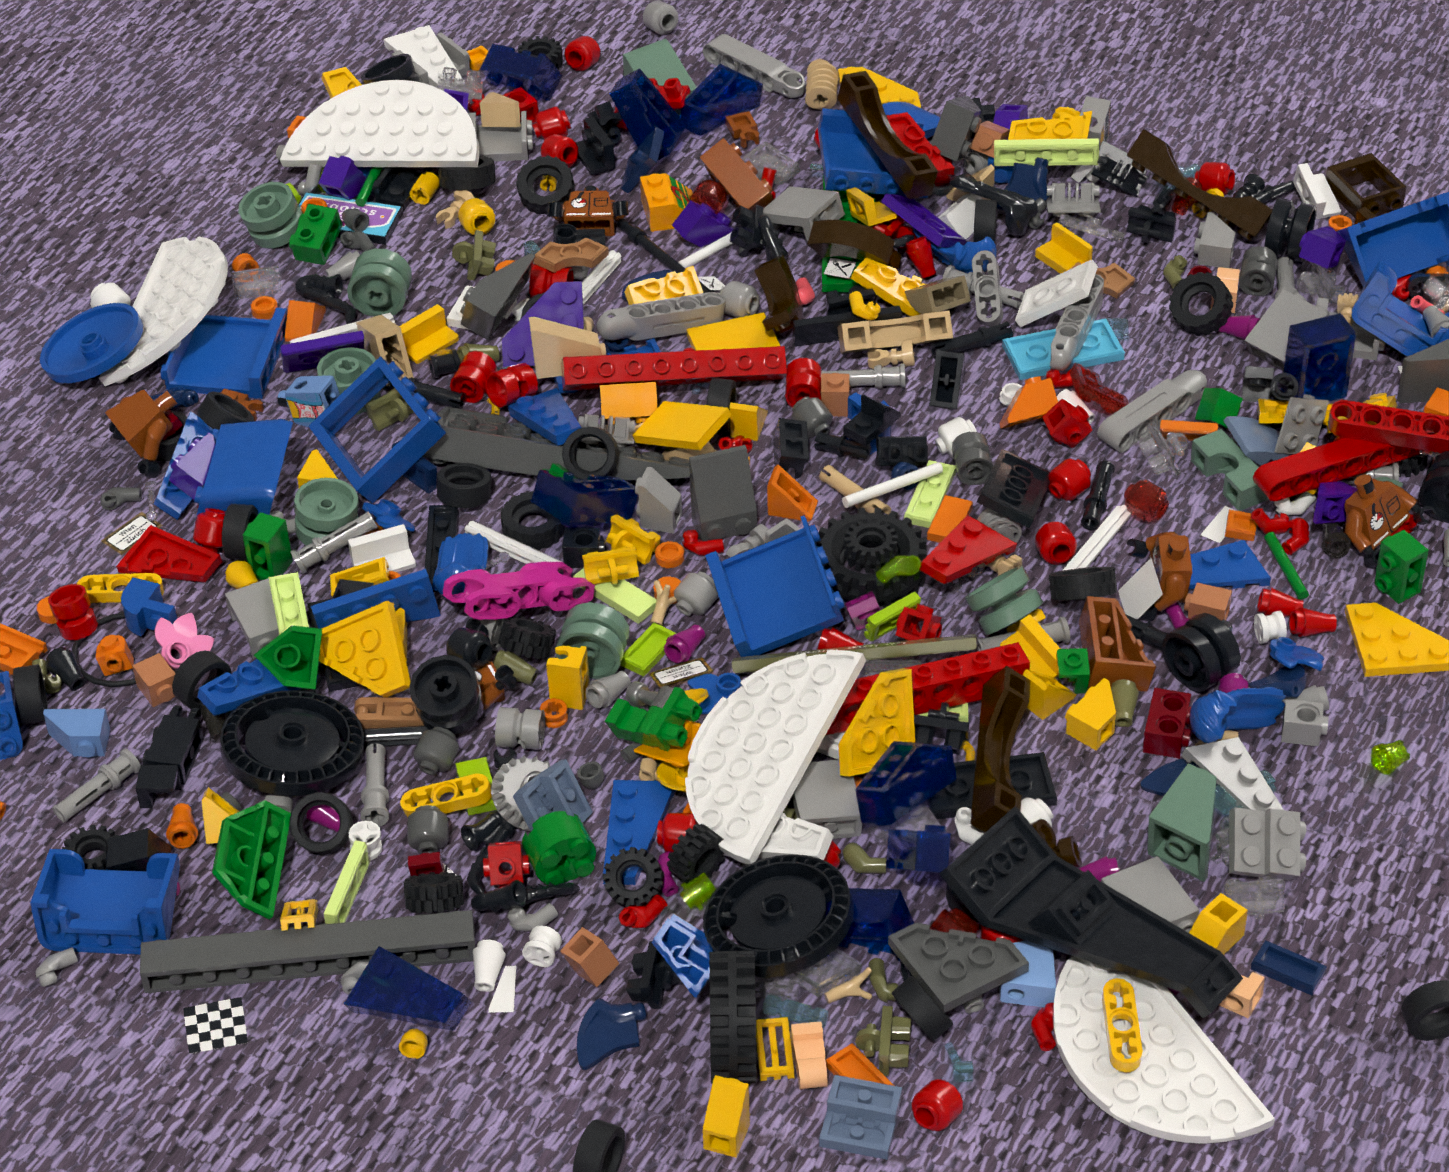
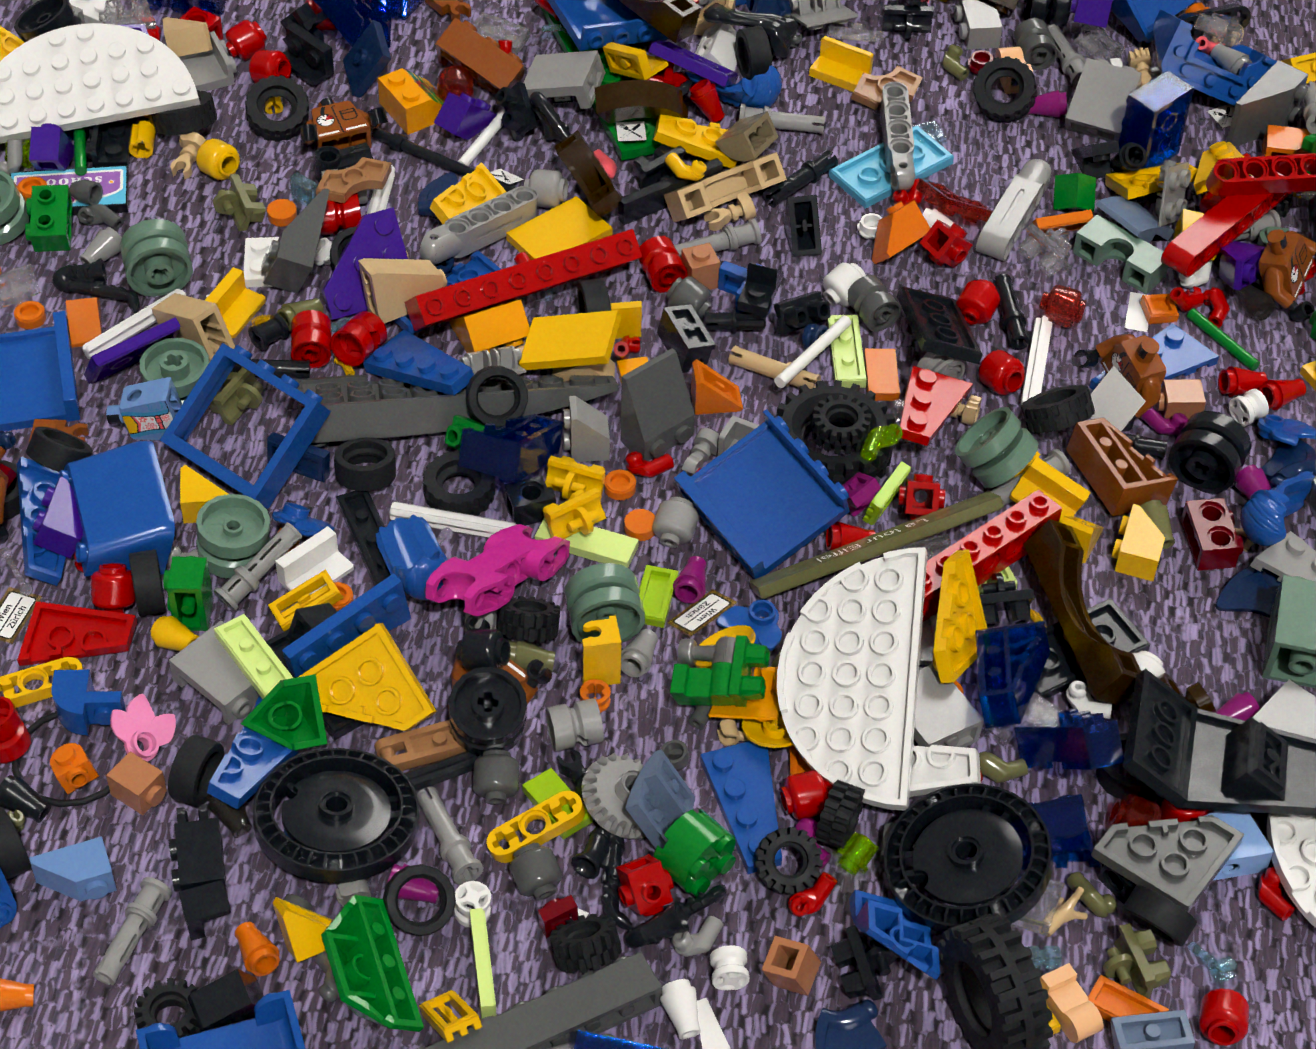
camera: 25 degrees left, 5 degrees up
(662, 603) = (646, 541): tan bar -> none
(979, 280) = (776, 105): light grey beam -> none
(1056, 293) = (865, 110): white tile -> none
(1075, 667) = (1100, 501): green bracket -> none

